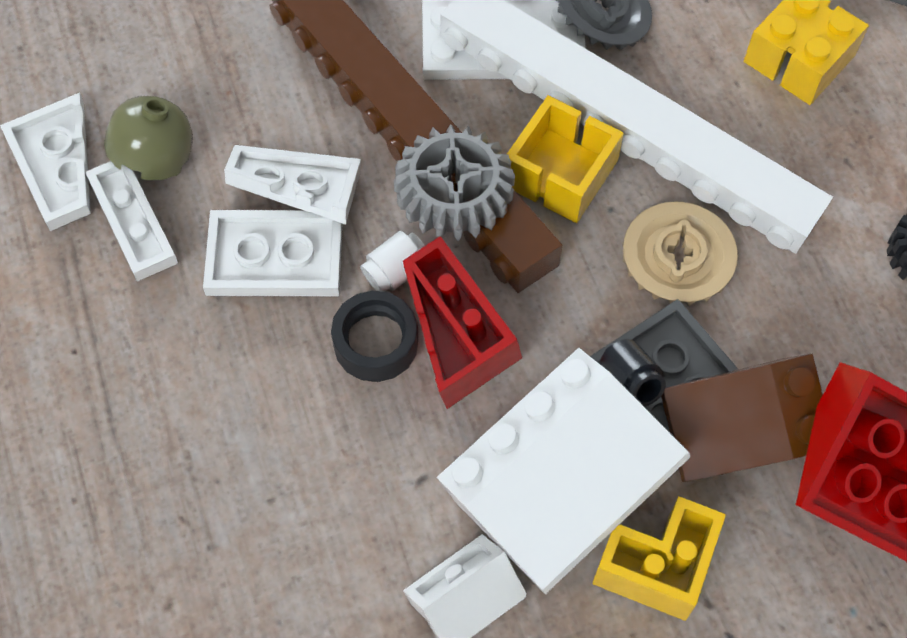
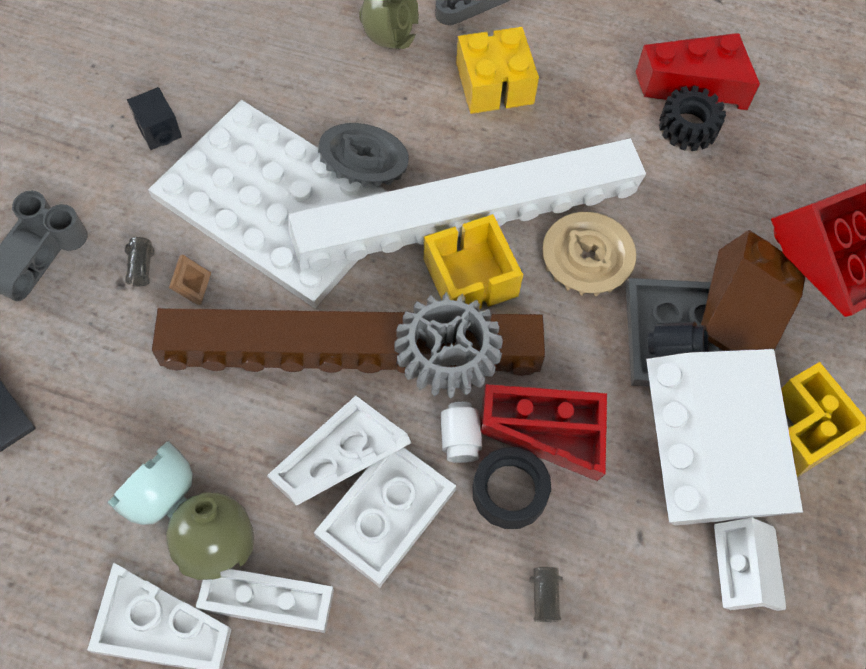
camera: 55 degrees left, 0 degrees up
(159, 71) = (154, 488): none -> light aqua cylinder
(297, 427) = (546, 594): none -> clear smoke pin

